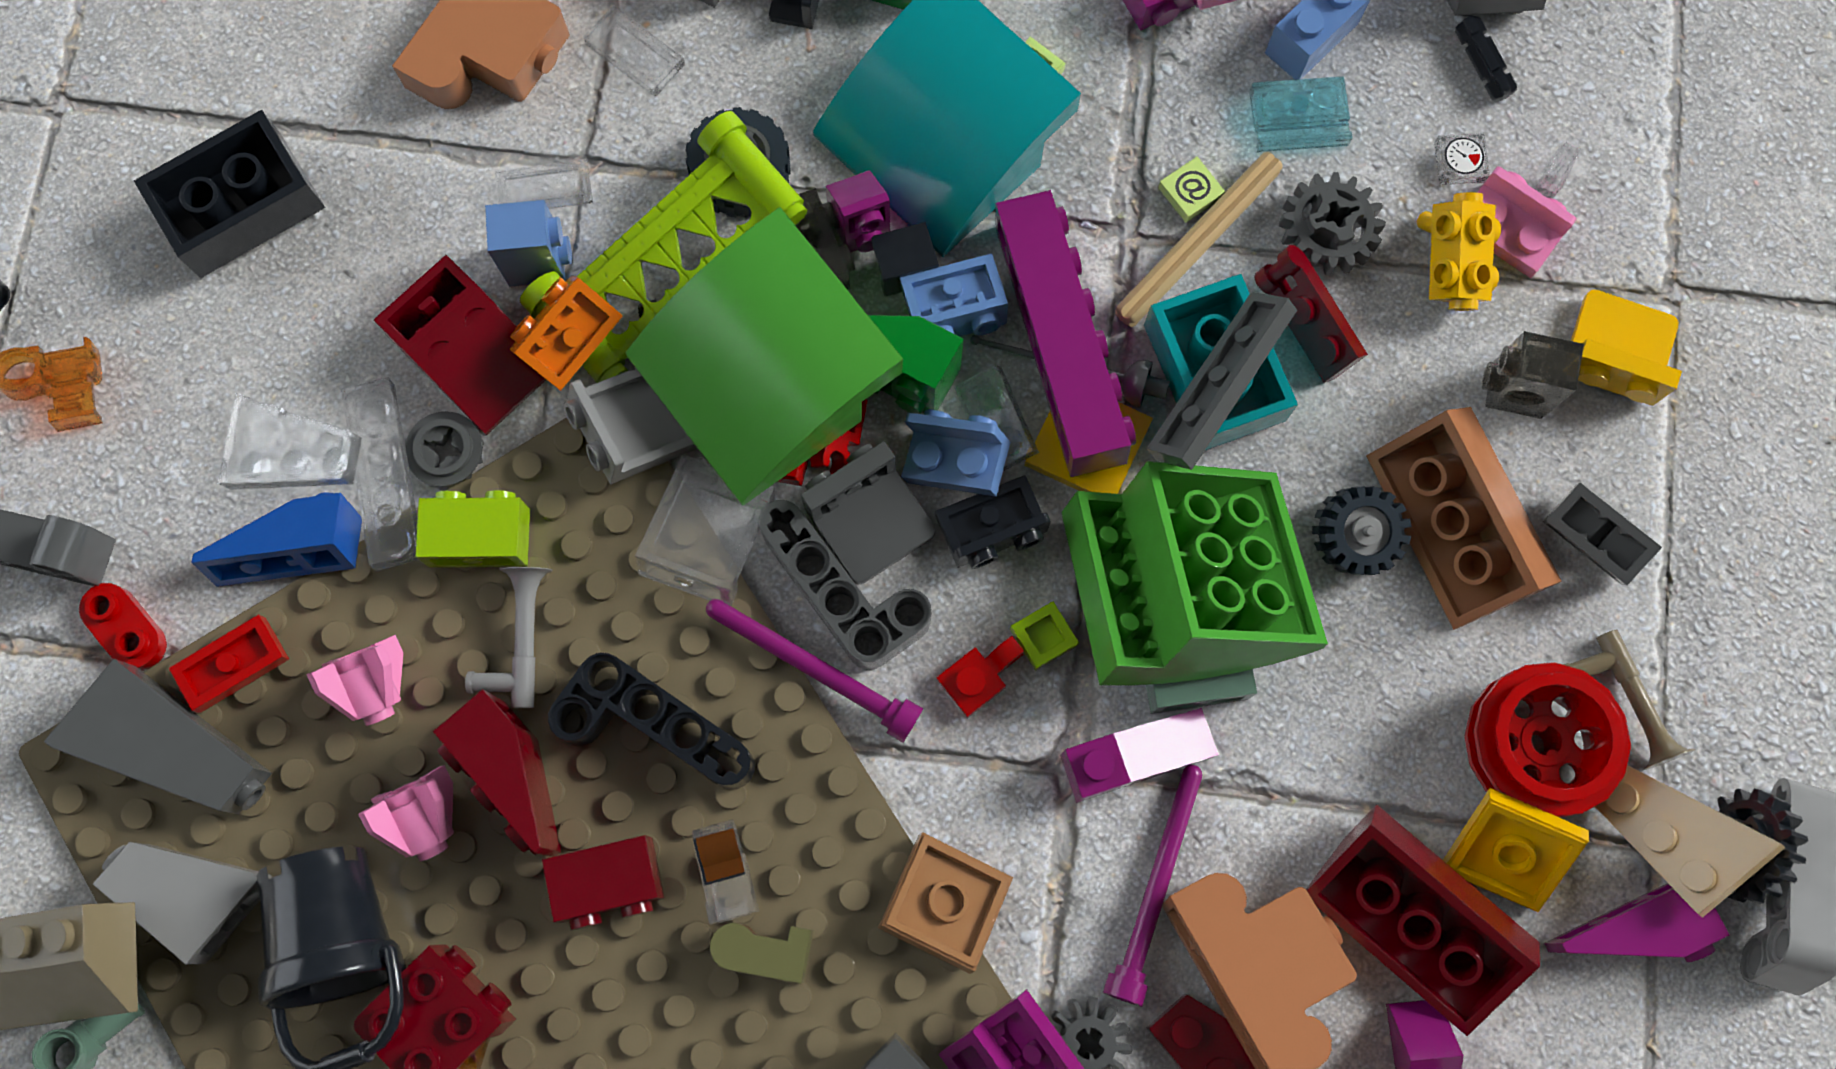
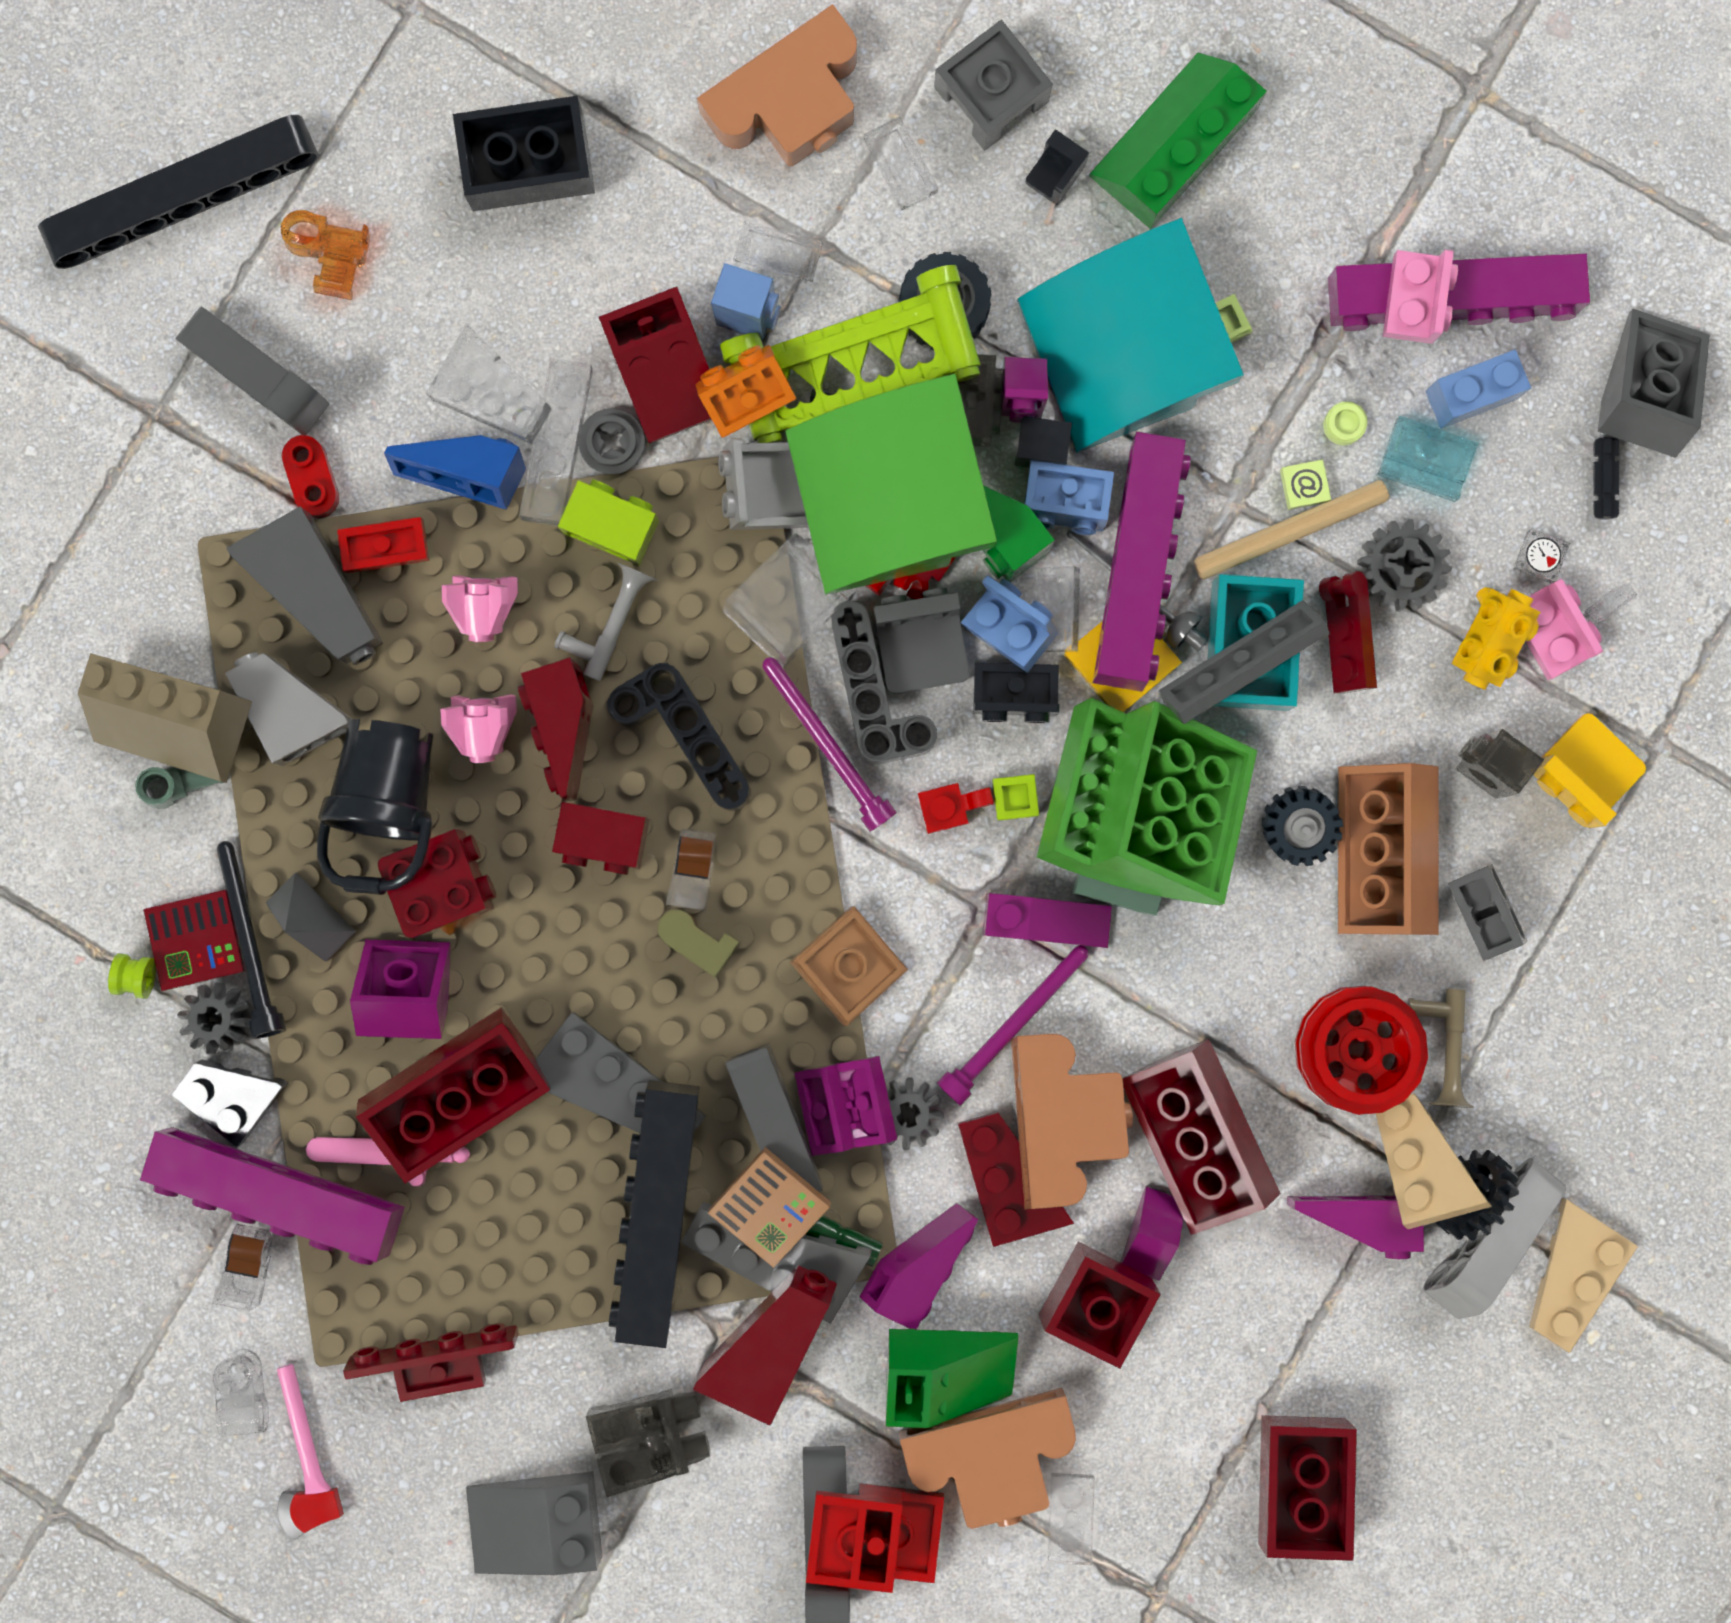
camera: 25 degrees right, 10 degrees up
(1201, 114) = (1345, 423): none -> yellowish green tile
(1516, 849) = (1295, 1118): yellow plate -> none

